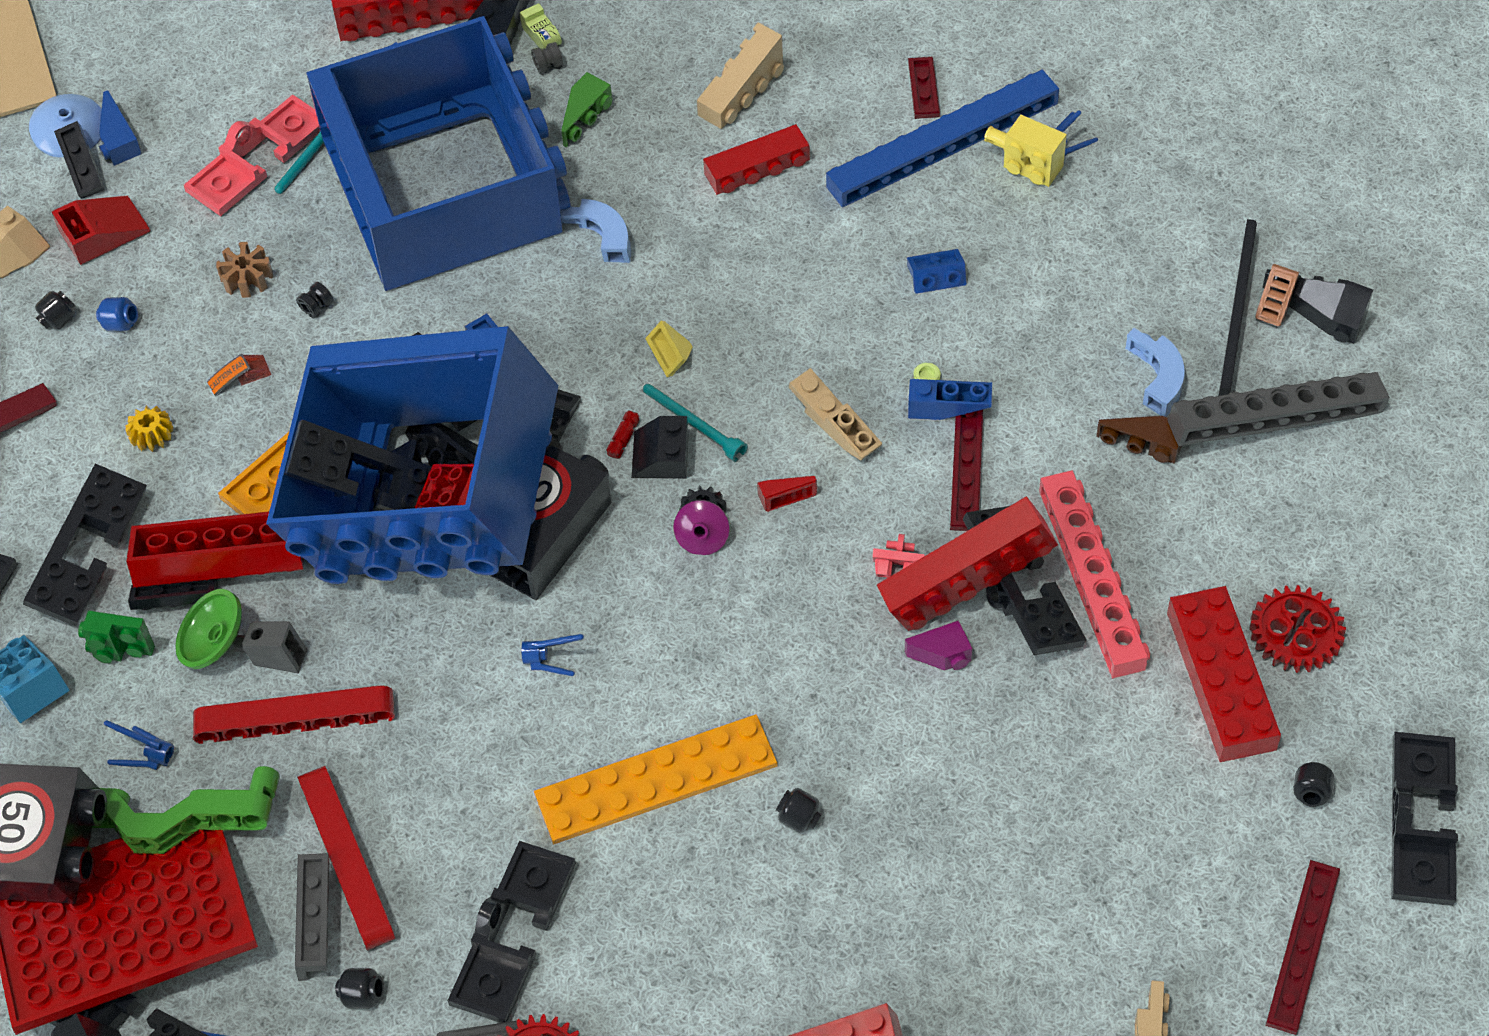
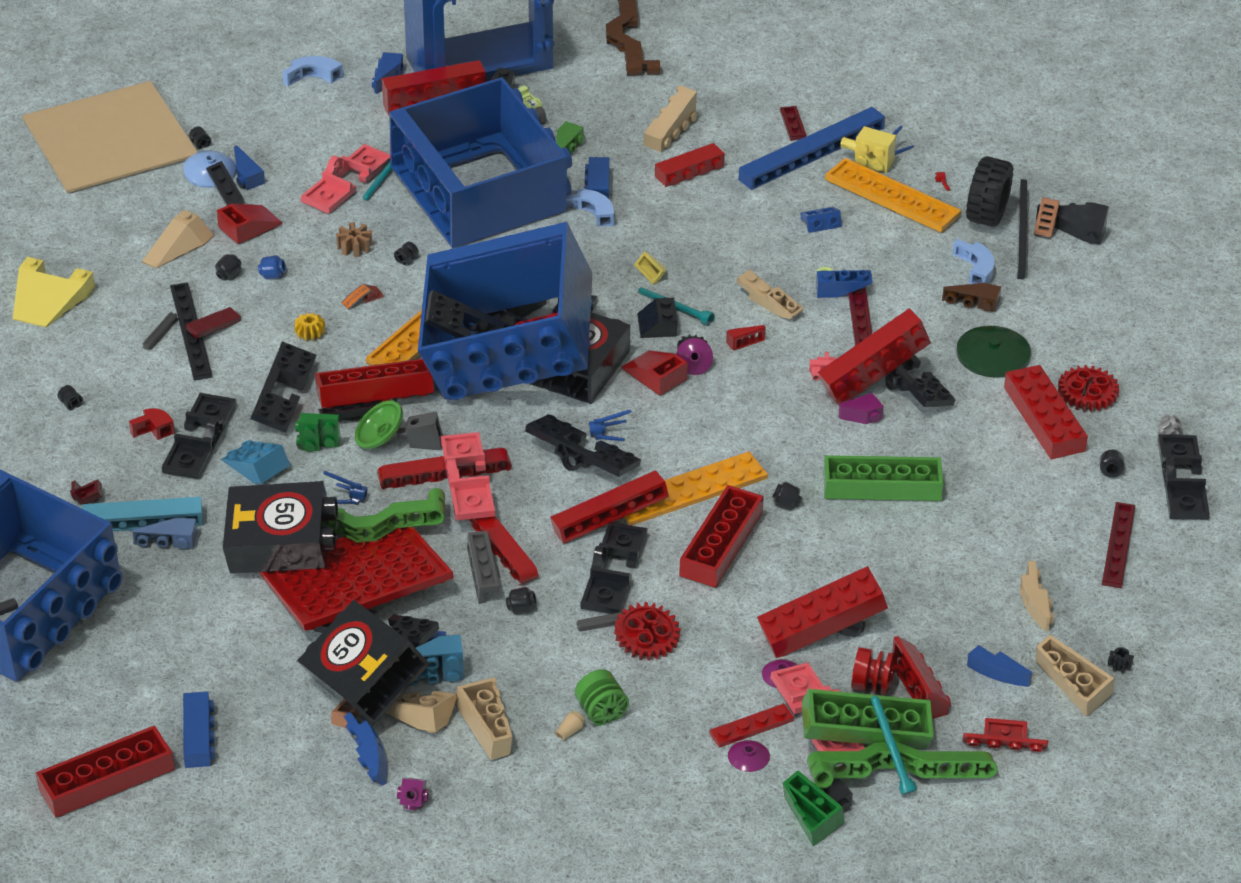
camera: 10 degrees left, 15 degrees down
(63, 69) = (200, 137): none -> black wheel
(315, 782) = (469, 495): none -> coral plate
(475, 666) = (566, 440): none -> black plate
(521, 818) = (609, 506): none -> red brick
(618, 175) = (597, 175): none -> blue brick
(622, 434) = (631, 313): red axle -> none
(642, 547) = (658, 370): none -> red slope
(683, 887) = (721, 536): none -> red brick
(950, 789) = (883, 478): none -> bright green brick
(1052, 232) = (893, 195): none -> light orange plate
(1120, 659) = (957, 372): coral brick -> none
(1128, 201) = (941, 177): none -> red hand
(1161, 542) = (993, 351): none -> dark green dish
(1193, 248) = (989, 191): none -> black tyre
(1277, 408) = (1057, 275): dark grey brick -> none
(1415, 716) = (1170, 425): none -> light grey gear

